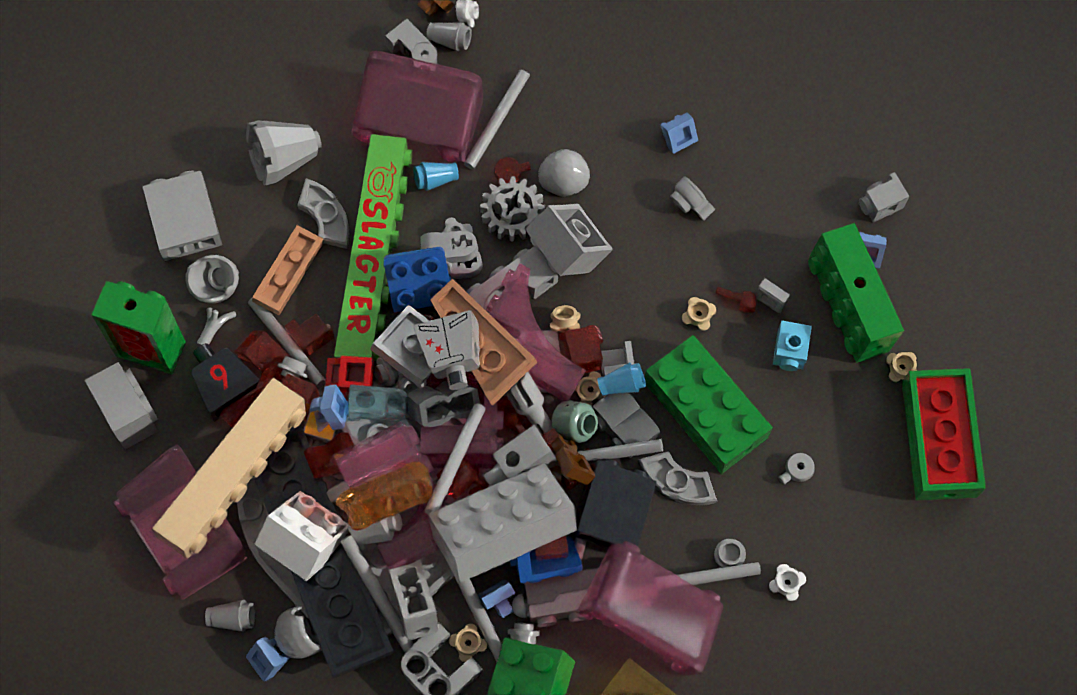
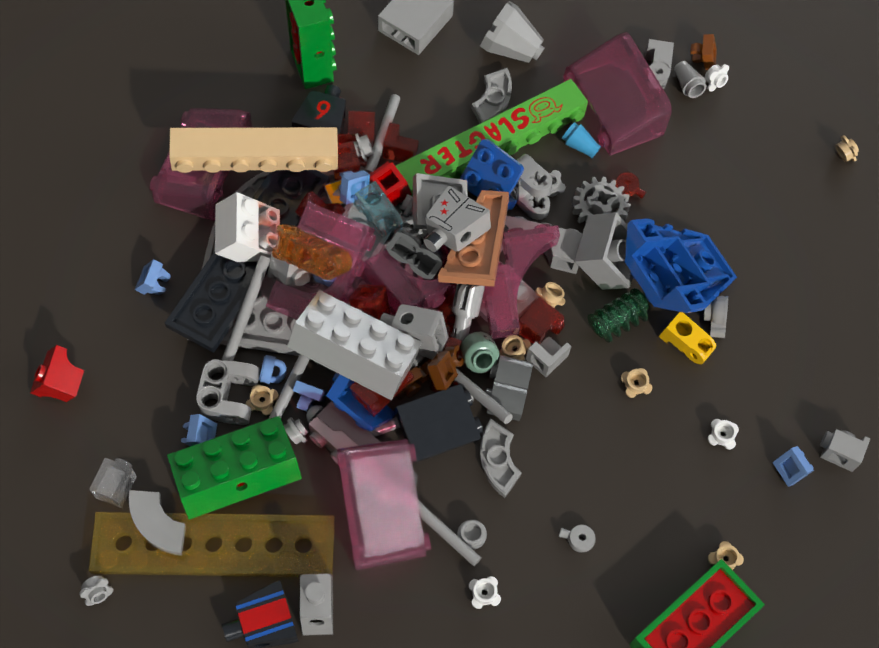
camera: 50 degrees right, 5 degrees down
(123, 404) = (253, 68): light grey brick -> none
(212, 279) = (385, 60): light grey hair -> none
(213, 324) = (357, 86): light grey bar -> none
(231, 616) = (164, 237): light grey cone -> none
(287, 270) = (433, 100): nougat plate -> none
(294, 635) = (177, 280): light grey hair -> none
(417, 610) = (246, 339): light grey torso -> none
(446, 616) = (267, 370): none -> medium blue tile
(455, 458) = (378, 284): light grey bar -> none
(496, 119) = (657, 151): light grey bar -> none
(564, 173) = (660, 211): light grey hair -> none
(622, 380) = (535, 359): dark azure cone -> none
(629, 278) = (619, 314): none -> clear green piece
(630, 196) = (675, 267): none -> blue wedge
(679, 132) = (759, 272): medium blue tile -> none
(693, 239) = (689, 338): none -> yellow leg
(707, 404) = (571, 435): green brick -> none
(746, 298) = (676, 408): clear red hand -> none
(772, 296) = (694, 422): light grey tile -> none
(792, 346) = (669, 463): medium azure brick -> none
(800, 273) = (728, 428): none -> white plate
(855, 293) = (748, 476): green brick -> none

